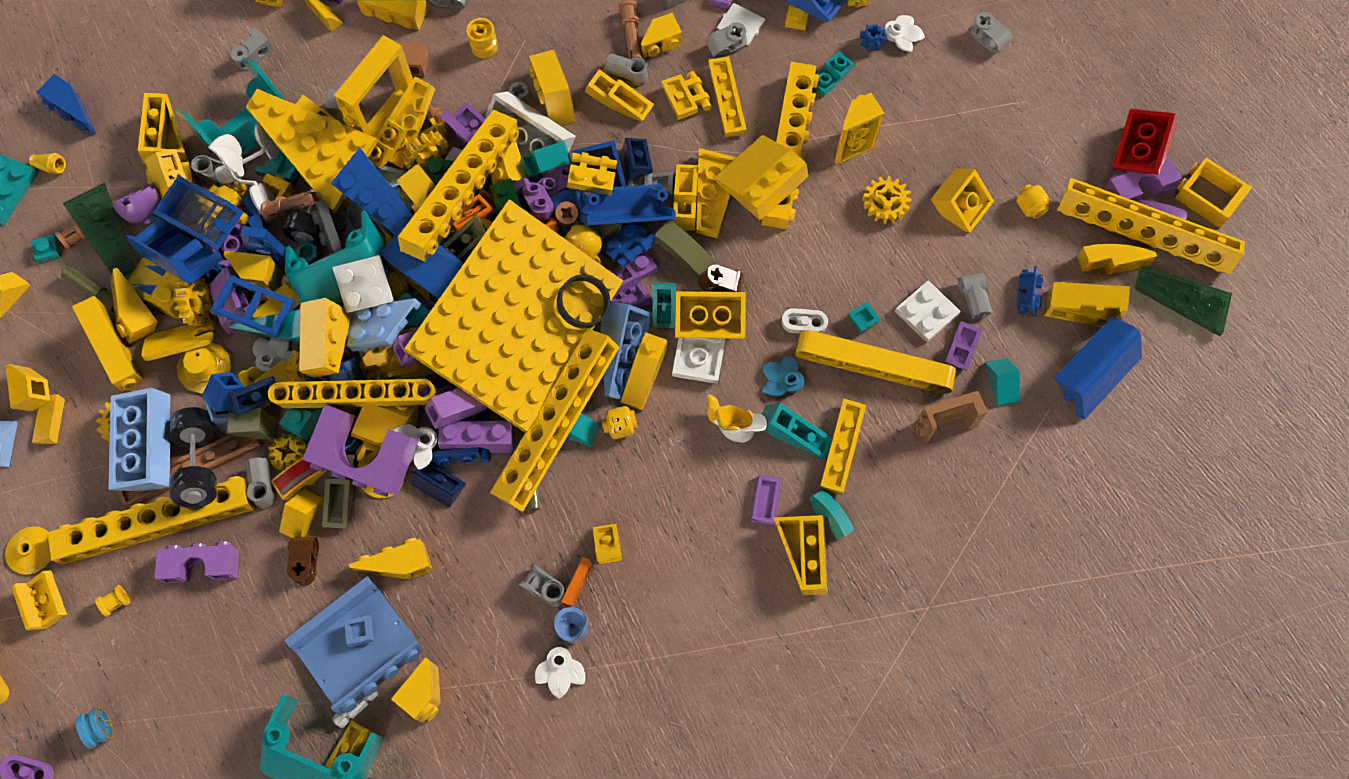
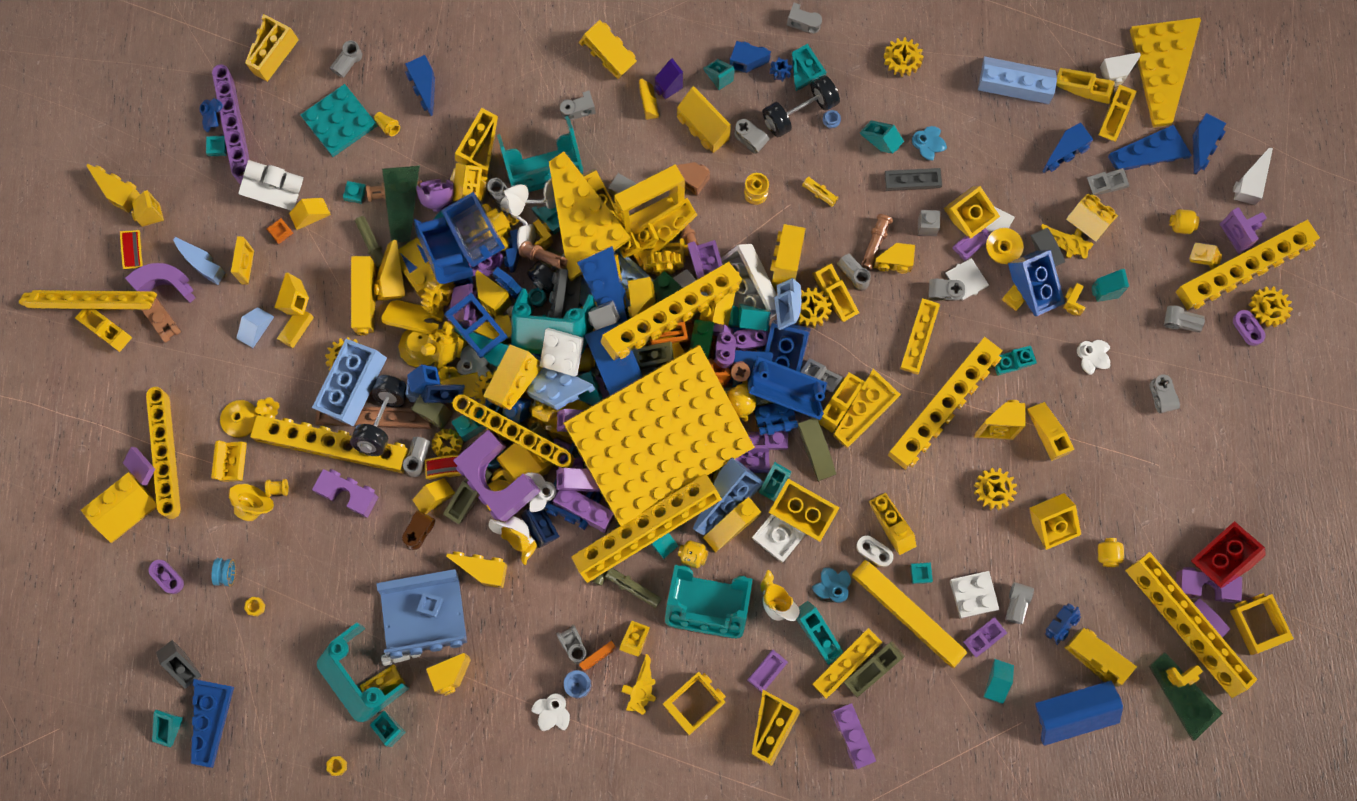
camera: 30 degrees right, 5 degrees up
(50, 522) = (267, 406): none -> yellow plant
(86, 633) = (249, 501): none -> yellow hat
(152, 746) = (254, 606): none -> yellow tile
(229, 348) = (444, 345): none -> yellow piece
(388, 224) = (603, 315): none -> light grey brick
(416, 504) = (517, 534): none -> hair
(516, 87) = (761, 253): light grey bush -> none
(548, 12) = (820, 191): none -> yellow pin
(573, 491) = (633, 587): none -> olive pin
(576, 124) = (788, 303): none -> light blue slope
(592, 179) = (774, 354): yellow plate -> none
(596, 282) = (733, 452): black tyre -> none
(604, 119) = (818, 307): none -> yellow gear
(636, 158) = (821, 351): dark blue slope -> none
(645, 594) = (641, 692): none -> yellow piece
(666, 465) = (708, 604): none -> teal windscreen
(680, 97) = (883, 315): yellow plate -> none
(699, 597) = (676, 714): none -> yellow window
(721, 279) = (831, 488): reddish brown piece -> none
(763, 176) = (906, 420): yellow slope -> none
(808, 285) = (893, 524): none -> yellow slope
(825, 505) = (808, 703): teal slope -> none
(872, 37) = (1064, 342): blue gear -> none
(873, 437) = (874, 669): none -> olive slope
(907, 523) = (854, 736): none -> medium lavender arch
(910, 120) = (1050, 431): none -> yellow slope
(967, 406) = (957, 686): medium nougat panel -> none
(1114, 257) = (1146, 633): yellow slope -> none
(1180, 274) = (1188, 677): none -> yellow bracket

